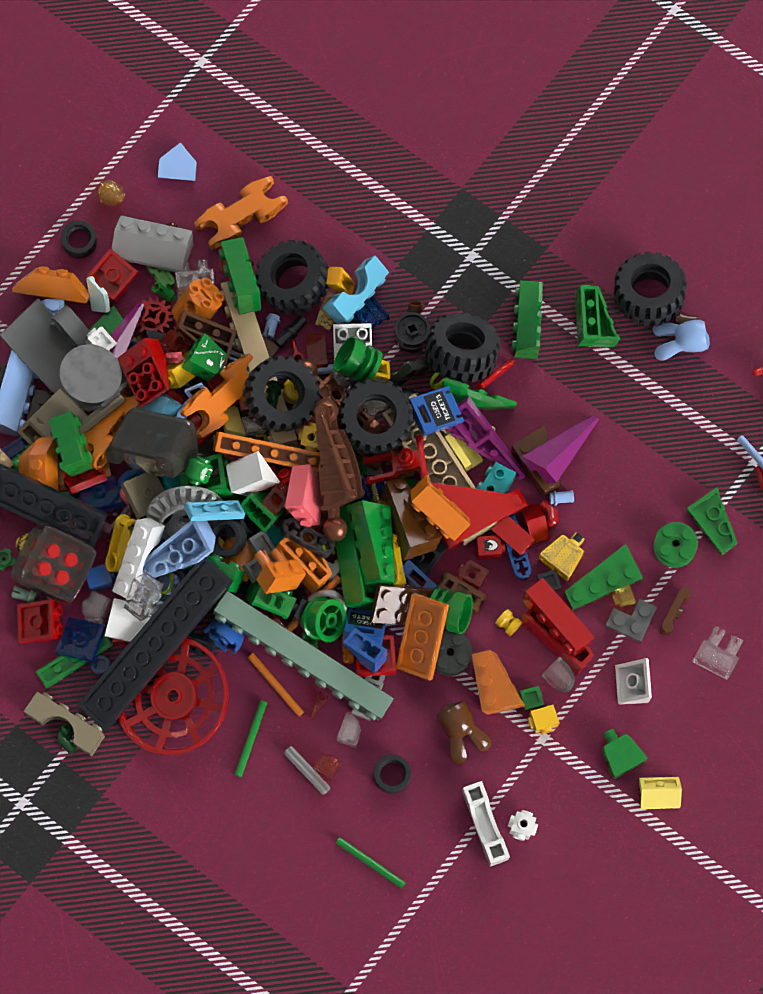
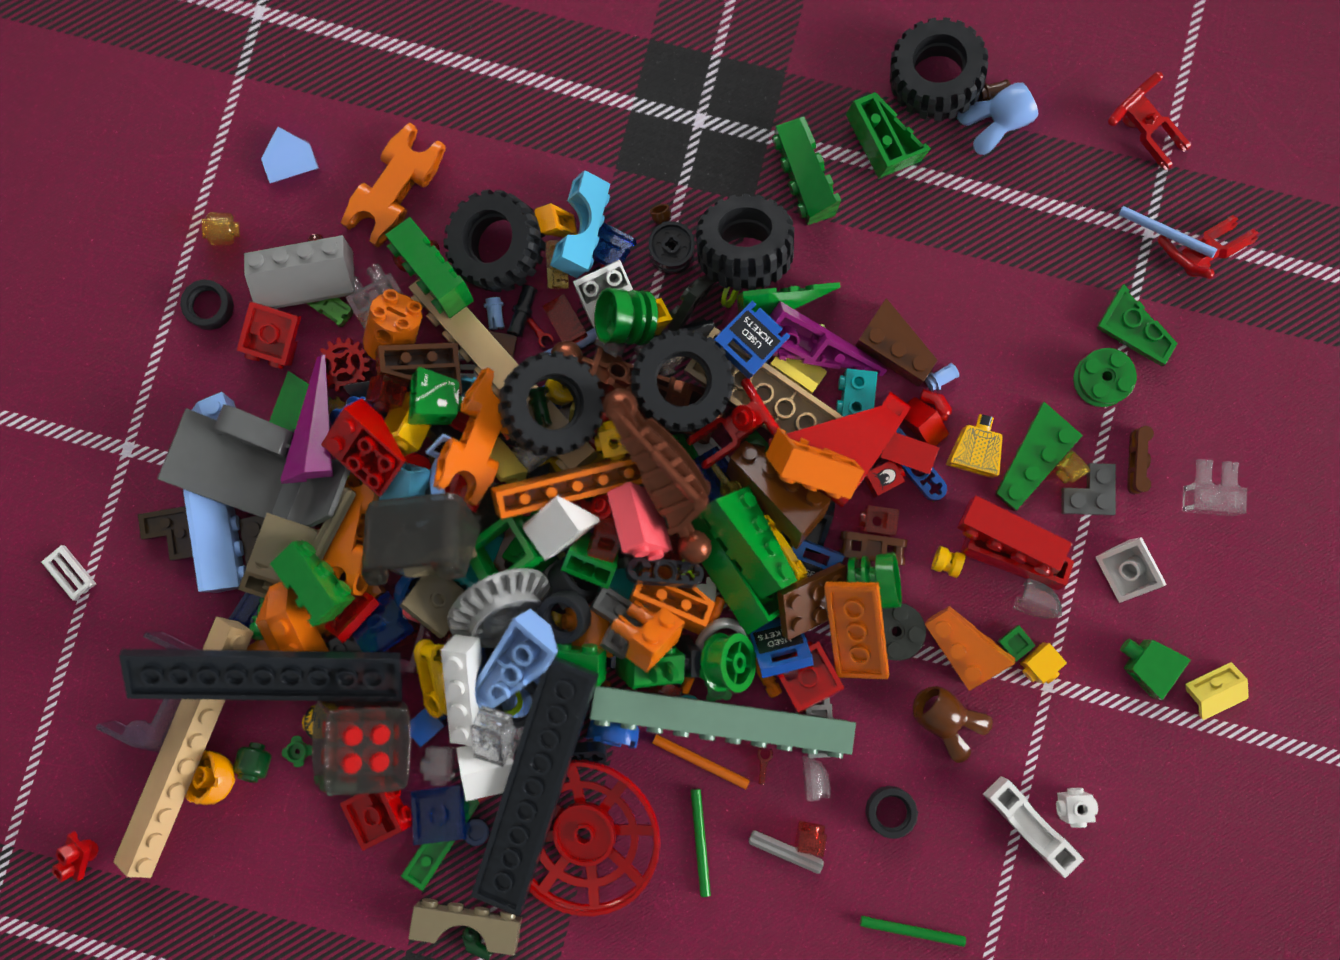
camera: 20 degrees left, 10 degrees up
(52, 284) = (200, 379): orange wedge -> none
(90, 373) = (296, 481): flat silver sticker -> none
(98, 296) = (262, 368): light aqua tile -> none
(101, 338) = (290, 431): white bracket -> none
(165, 293) = (348, 328): green pin -> none
(174, 357) = (393, 413): coral axle -> none
(198, 470) = (491, 550): green head -> none
(214, 510) = (534, 594): medium azure tile -> none
(366, 650) = (798, 682): blue arch -> none
(495, 374) = (798, 256): red bar -> none
(551, 578) = (973, 486): black plate -> none
(556, 454) = (919, 328): magenta wedge -> none

